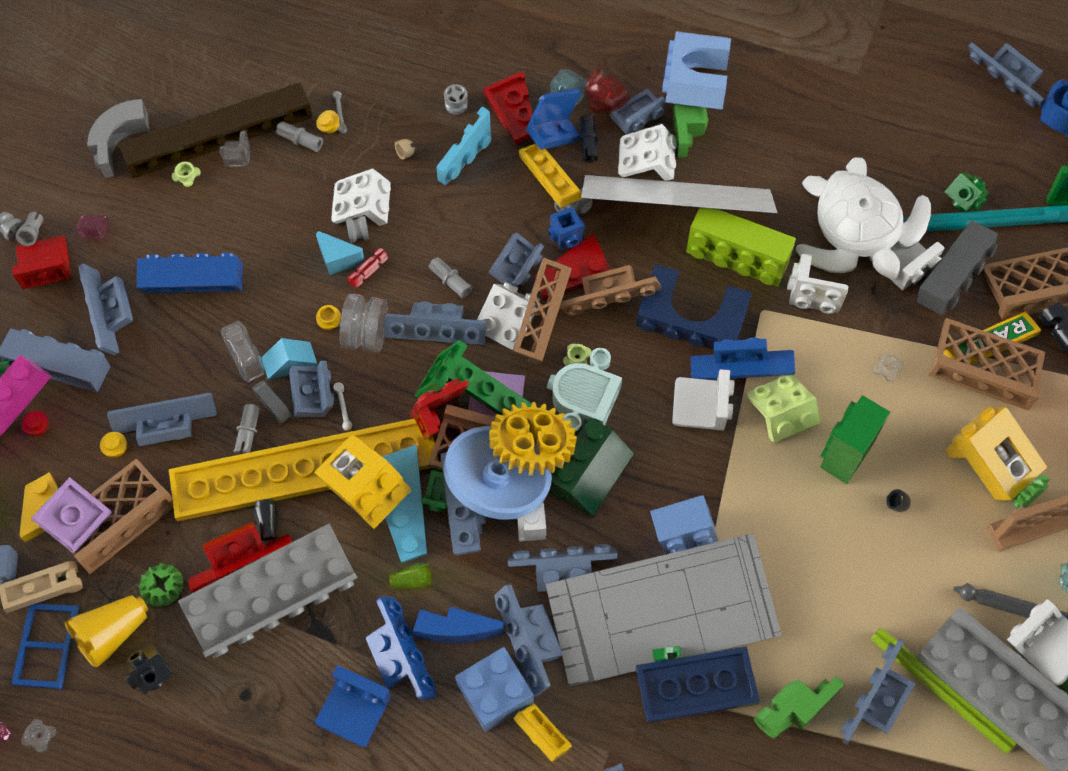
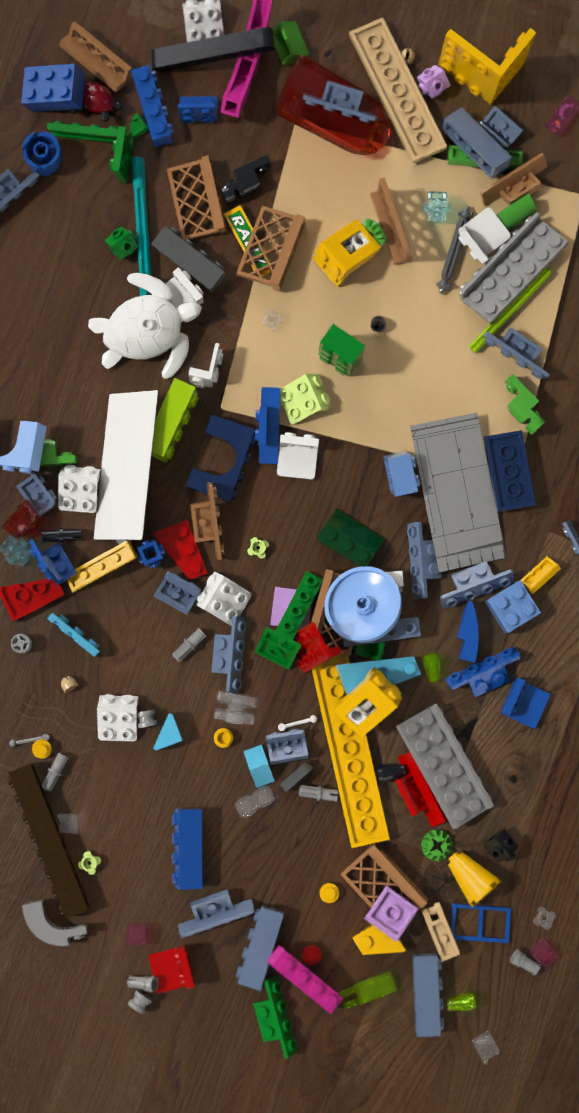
camera: 95 degrees left, 20 degrees up
(163, 419) = (312, 855): sand blue bracket -> none
(367, 267) = (178, 709): axle -> none
(515, 444) = (340, 596): yellow gear -> none
(548, 315) = (230, 569): medium nougat fence -> none
(585, 390) = (291, 542): light aqua piece -> none
(666, 653) = (490, 494): green tile -> none

